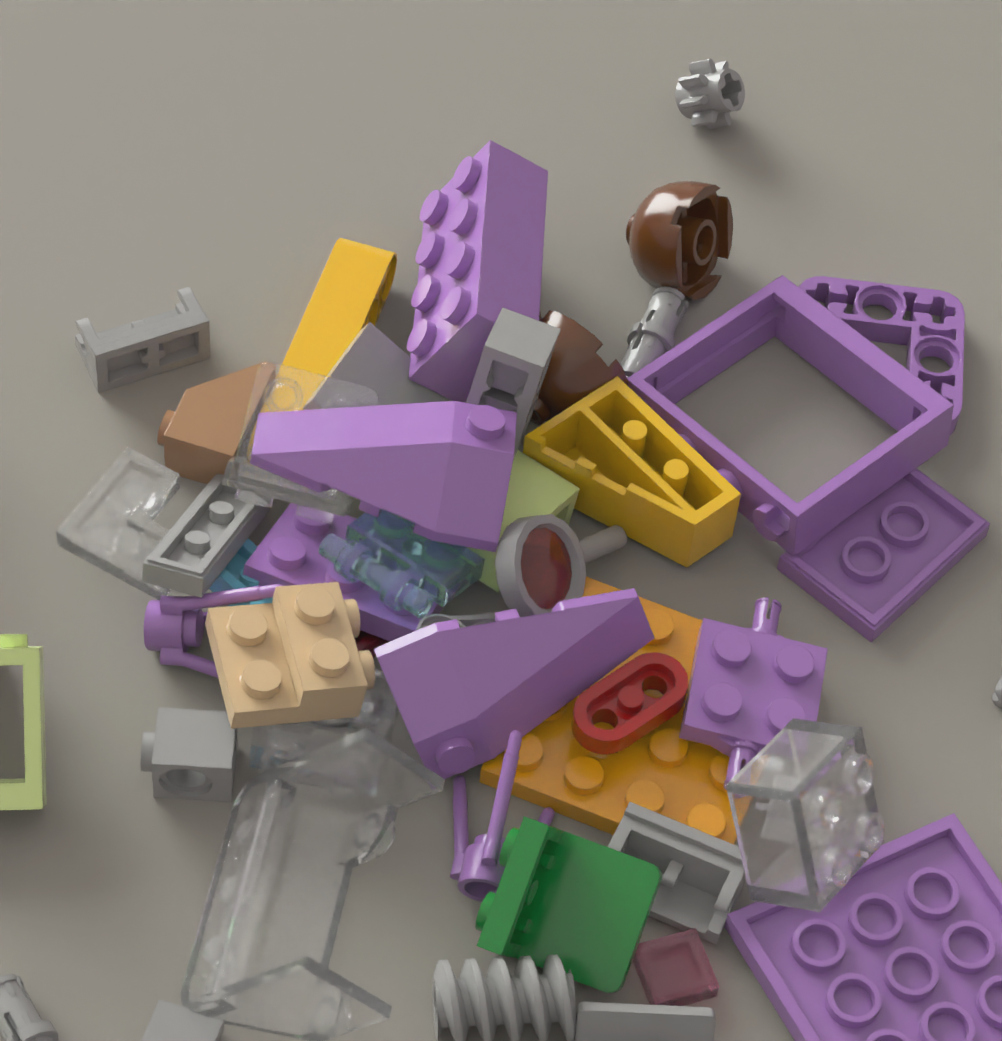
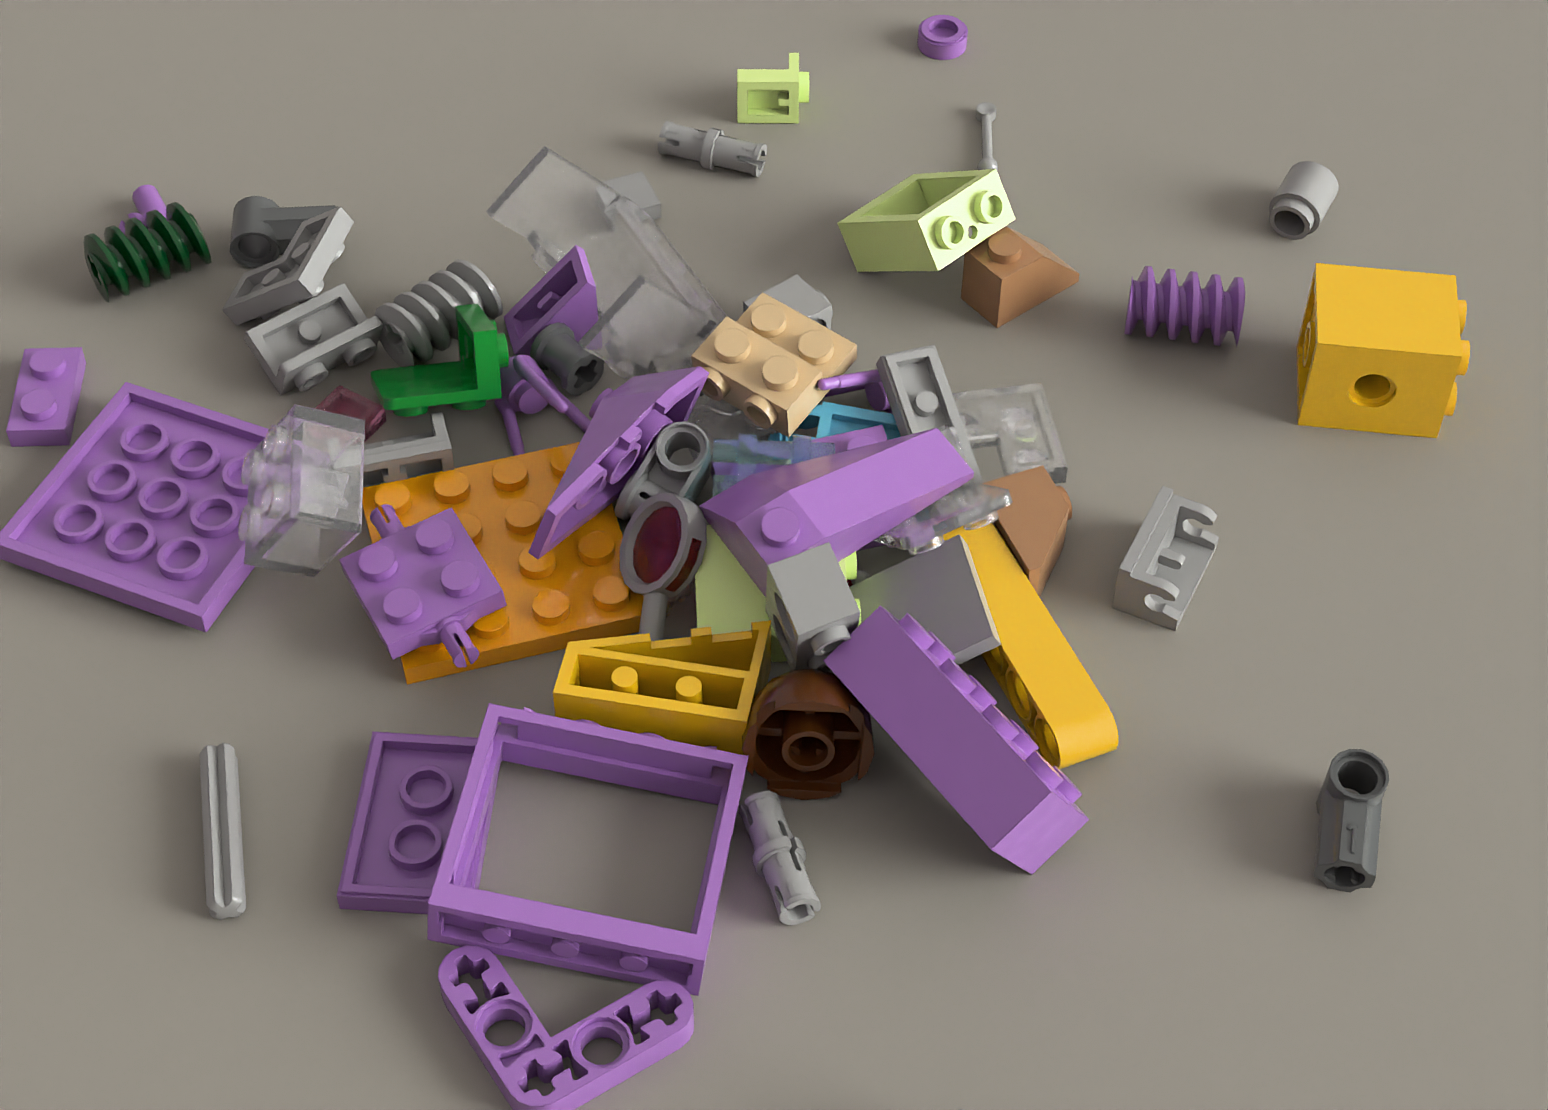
camera: 145 degrees right, 5 degrees down
(240, 103) = (1350, 821): none -> dark grey piece
(388, 926) = (561, 296): none -> medium lavender slope
(424, 868) = (563, 355): none -> dark grey bush
(625, 706) = (503, 520): red plate -> none
(680, 237) = (838, 948): reddish brown cylinder -> none

